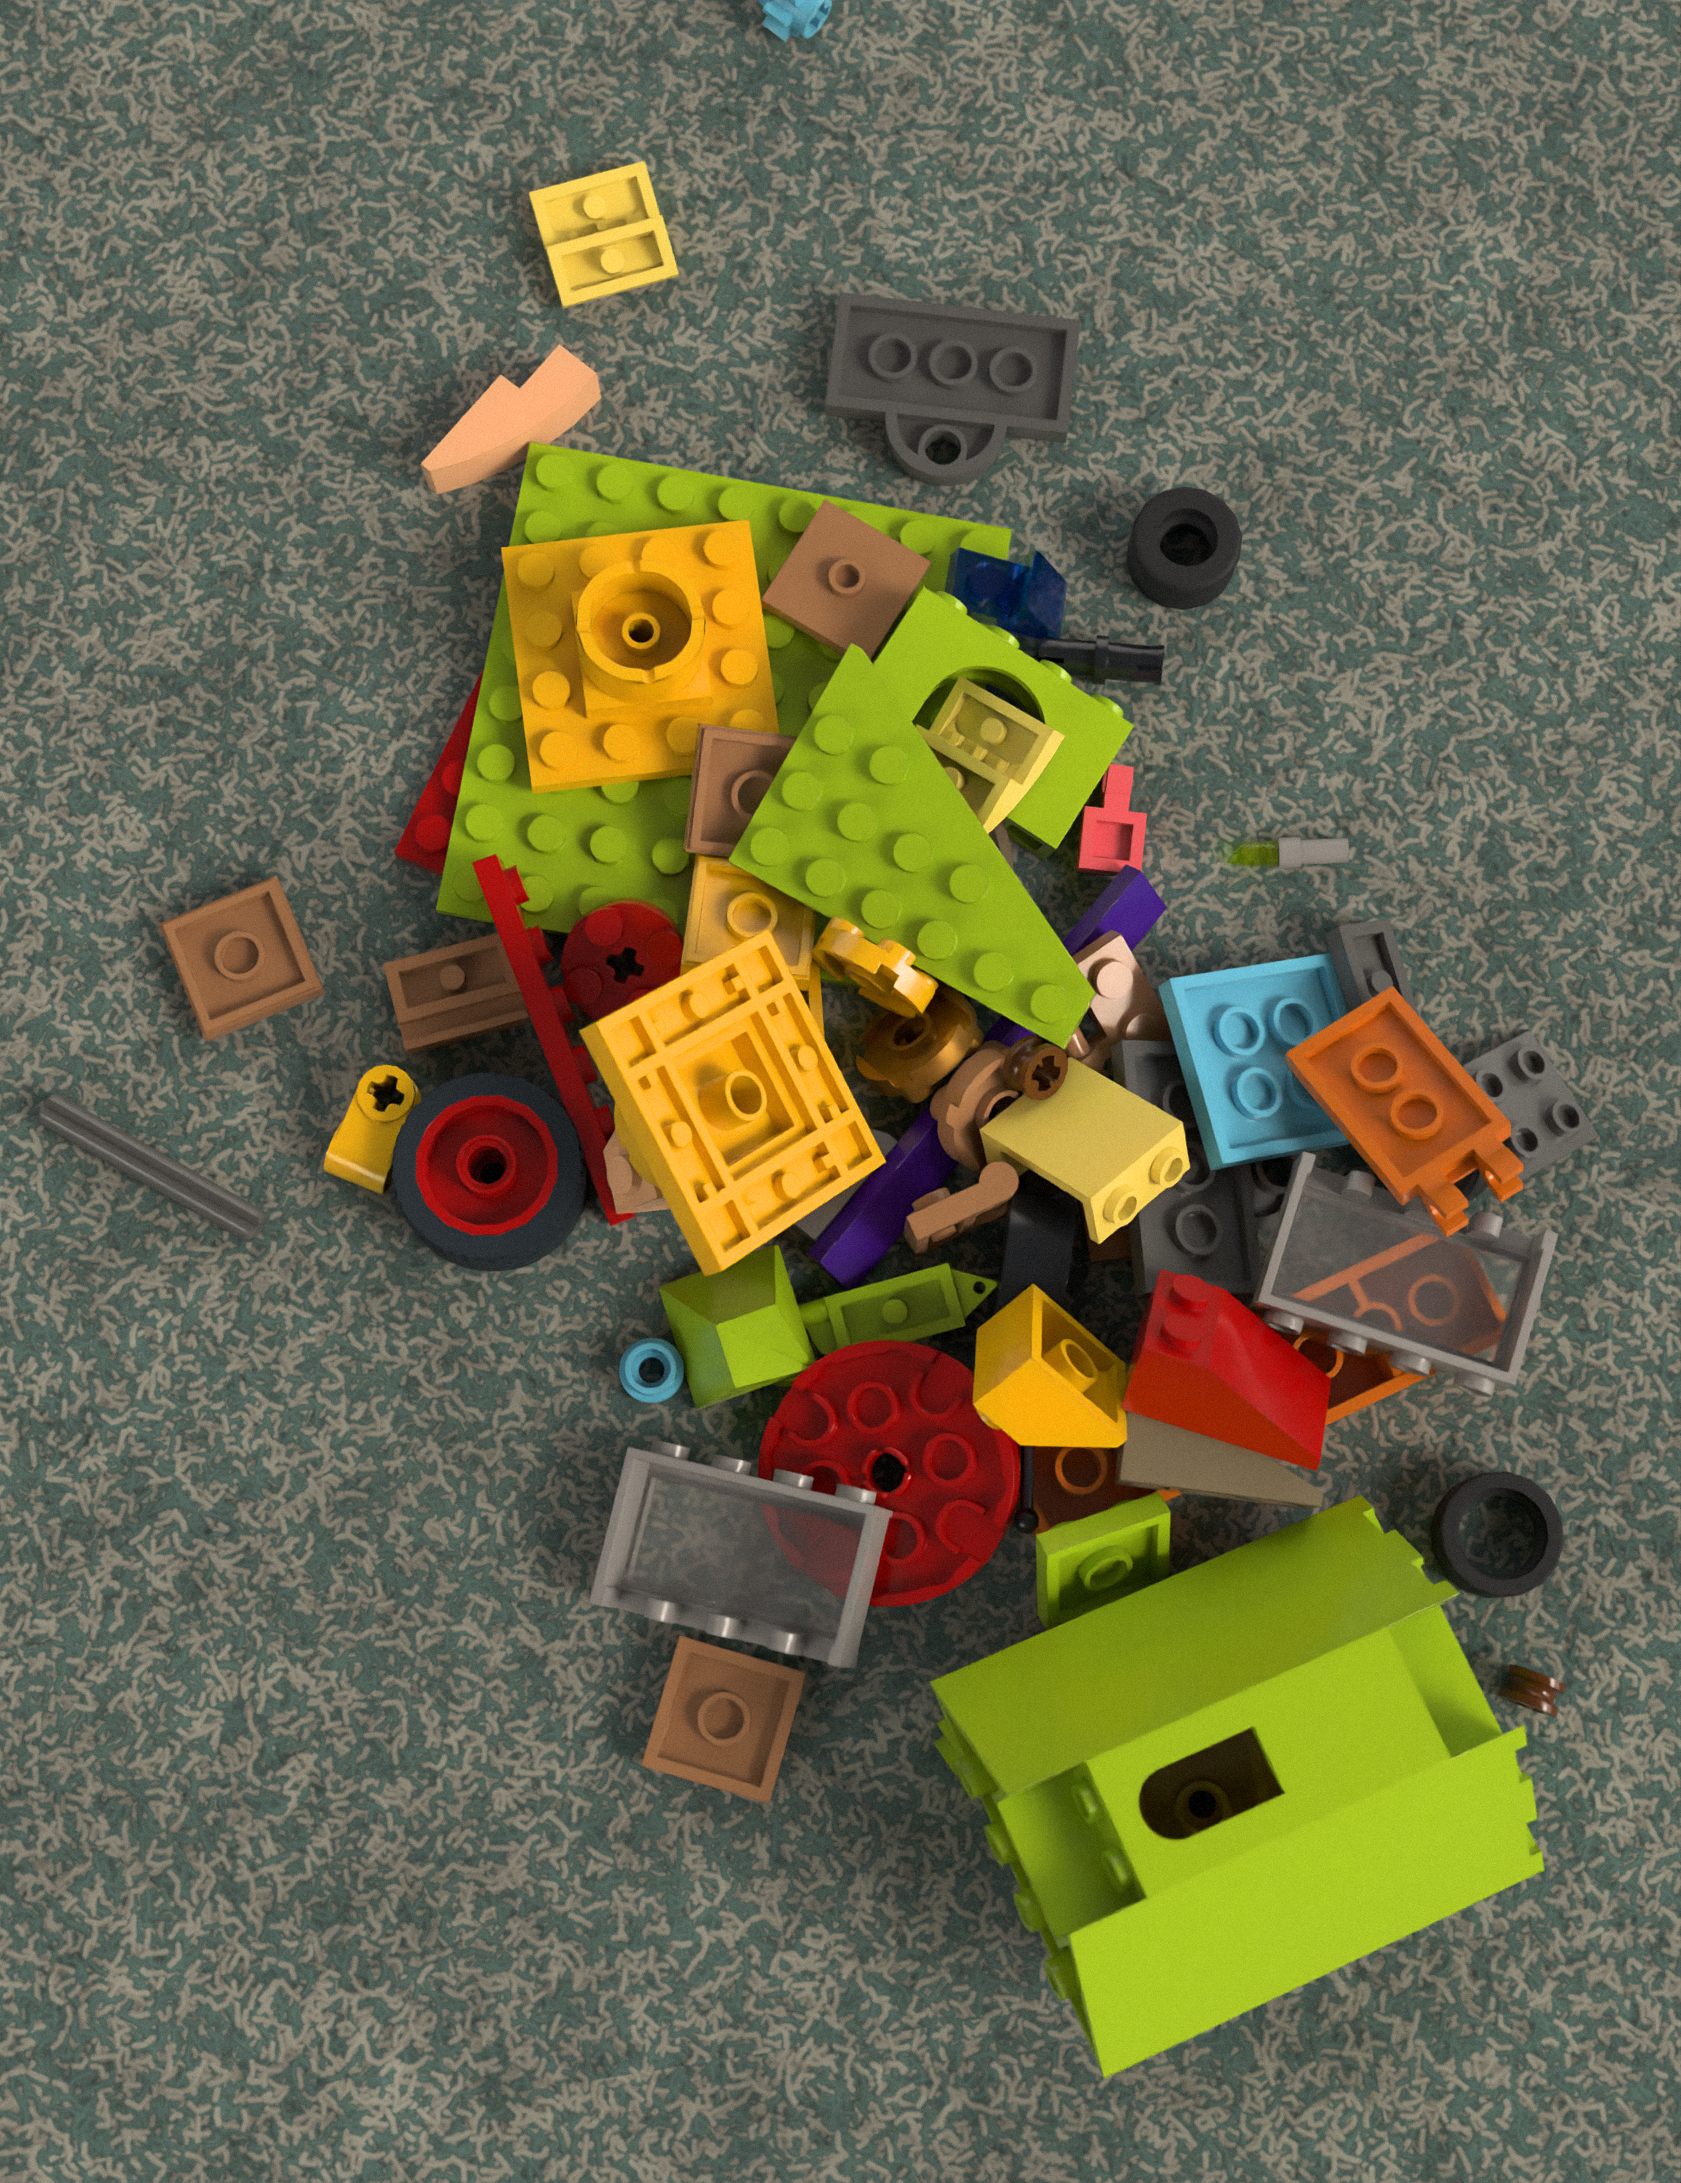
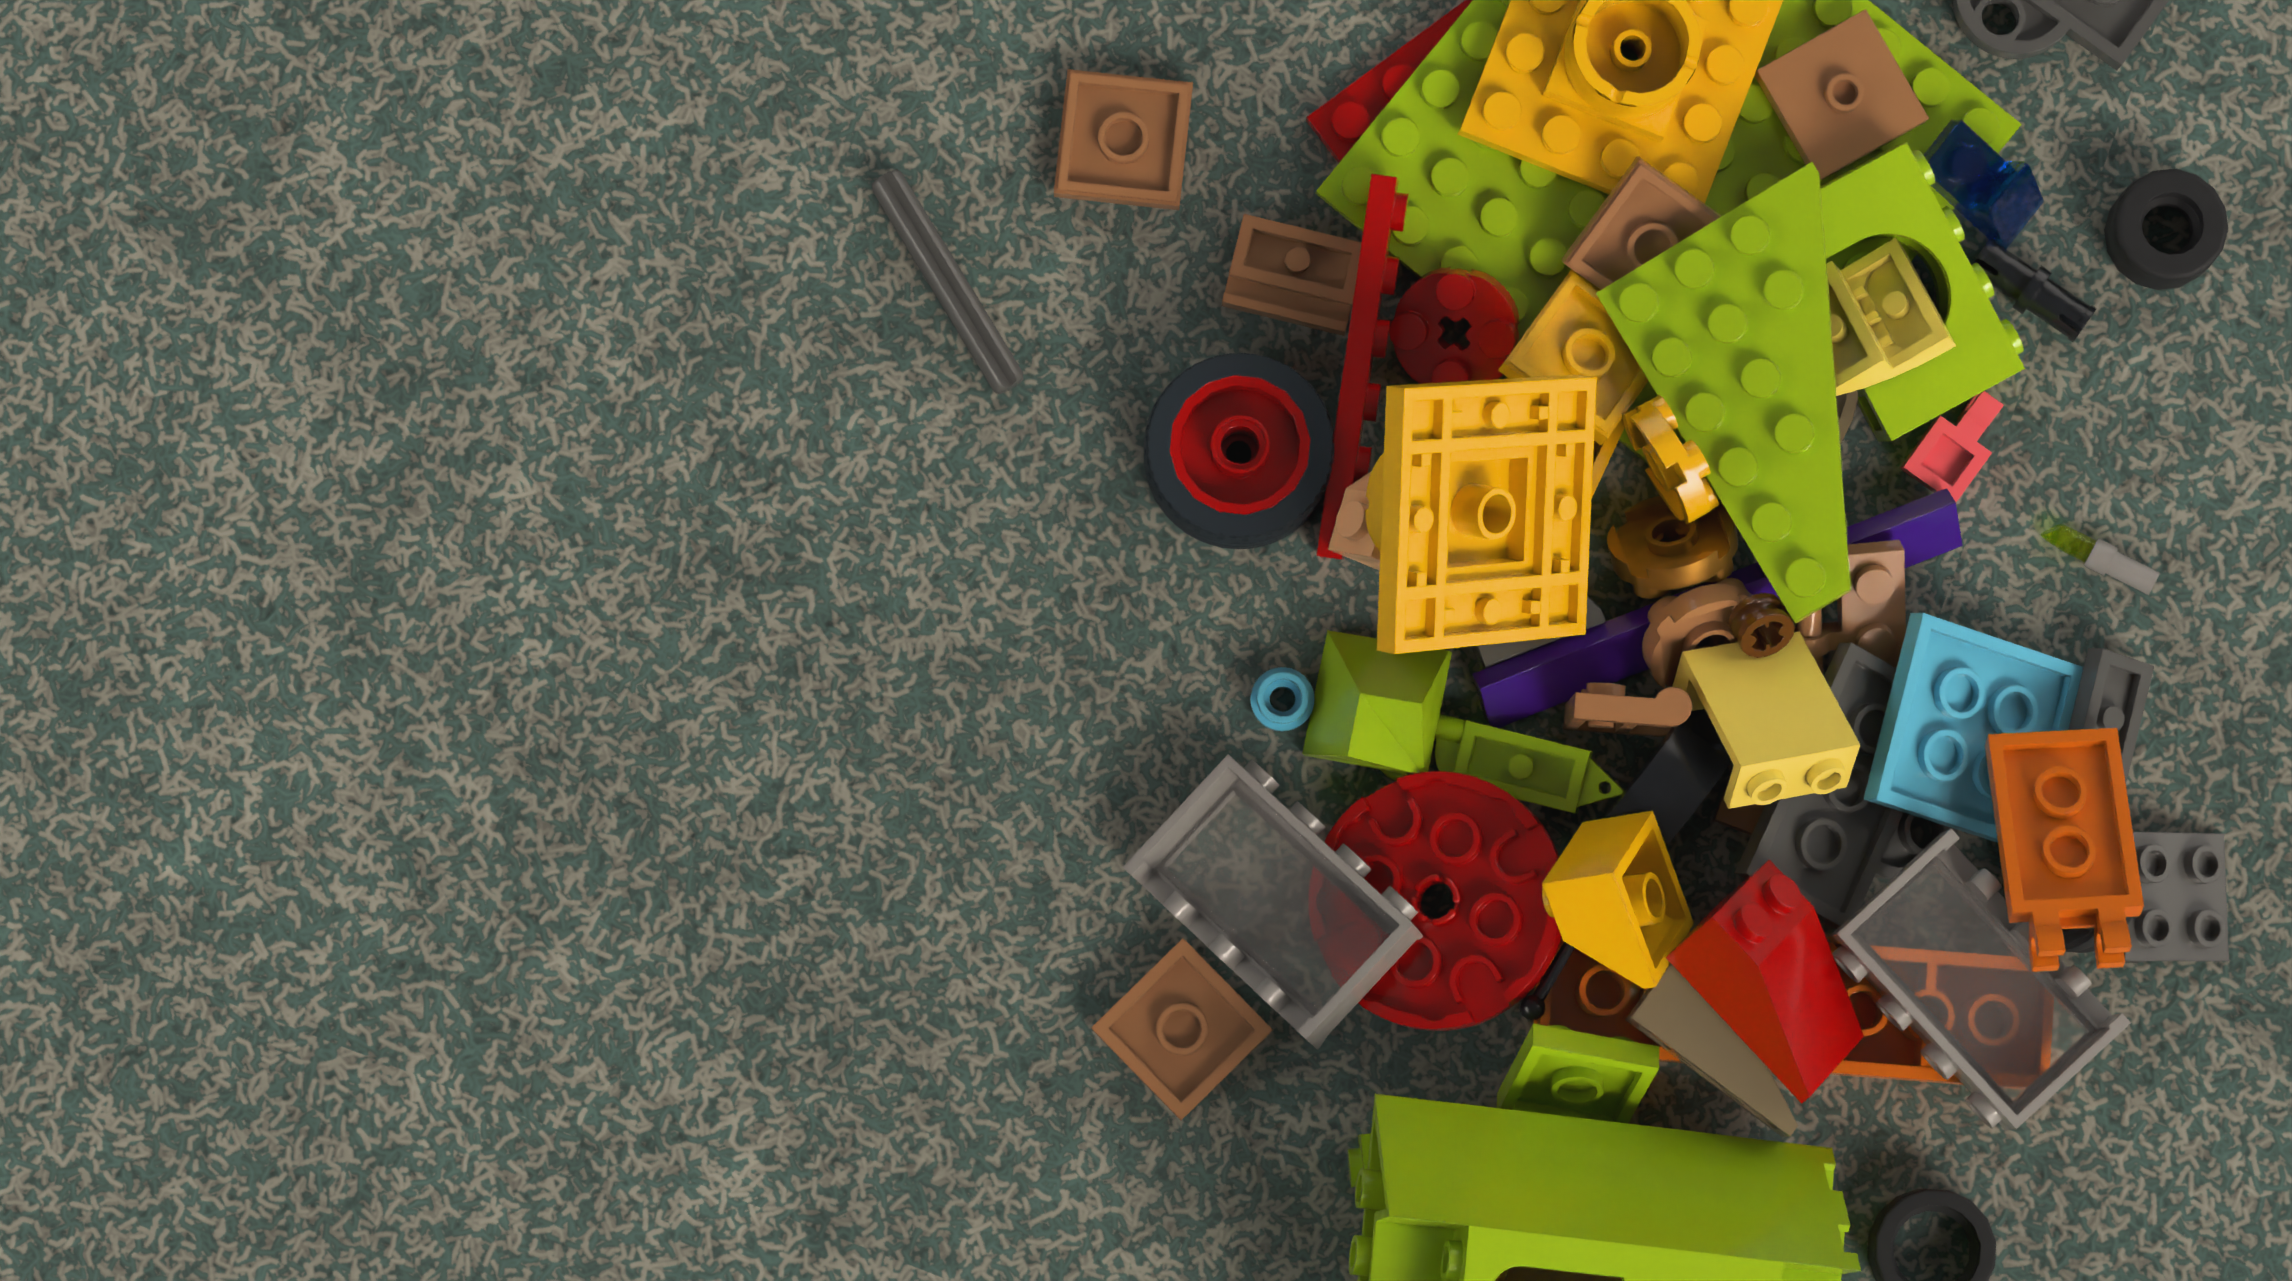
camera: 30 degrees right, 5 degrees up
(367, 1135) = (1149, 362): yellow piece -> none

